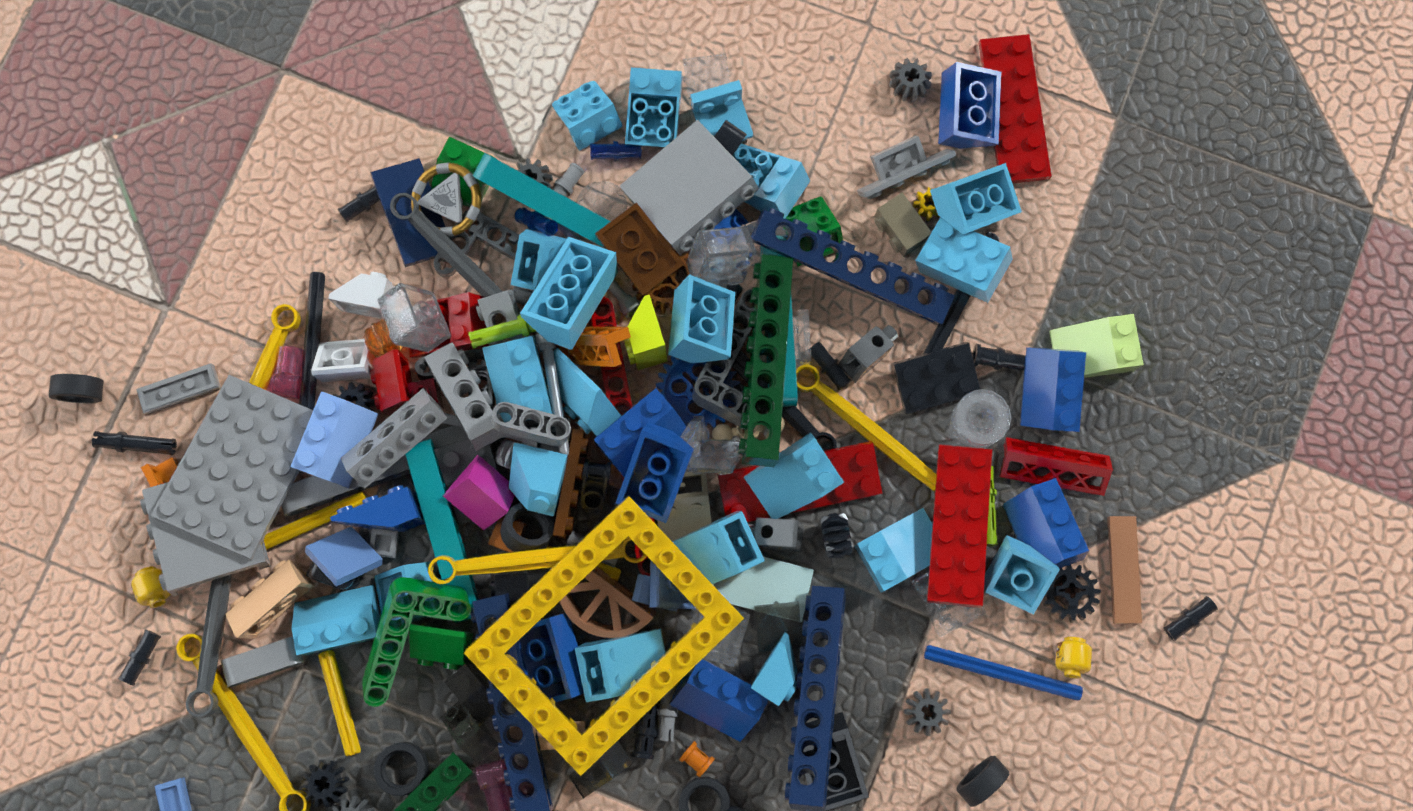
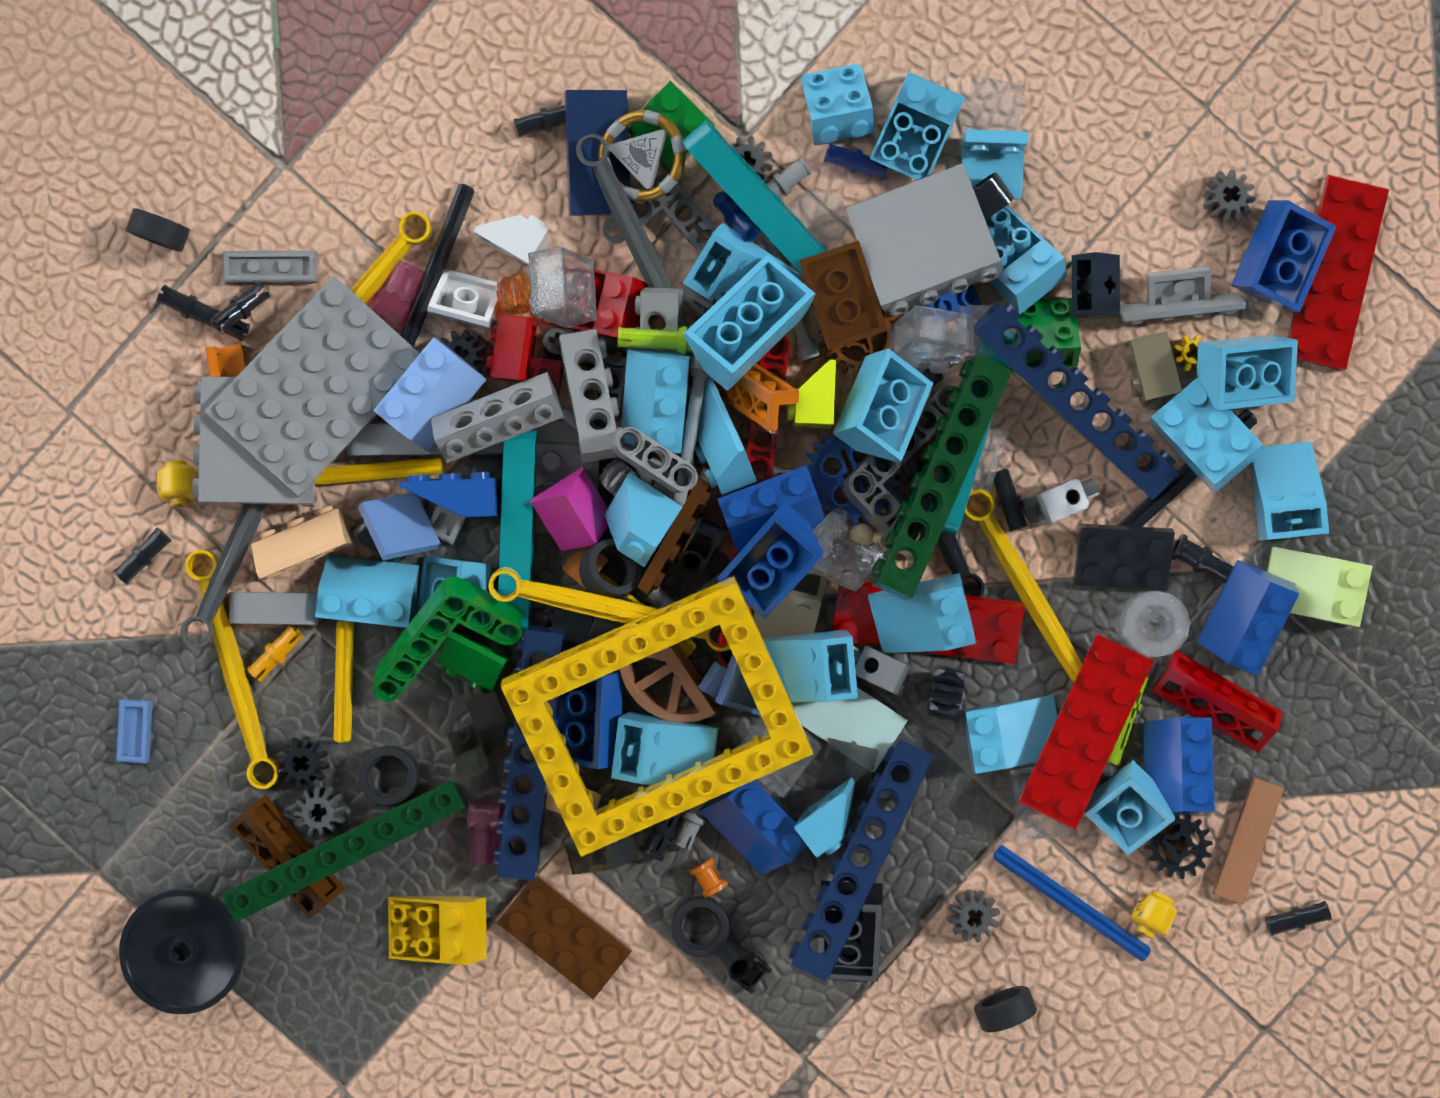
camera: 20 degrees right, 10 degrees up
(162, 427) = (240, 308): none -> black pin
(274, 699) = (275, 652): none -> light orange pin
(834, 178) = (1095, 285): none -> black brick
(1045, 284) = (1288, 492): none -> medium azure slope

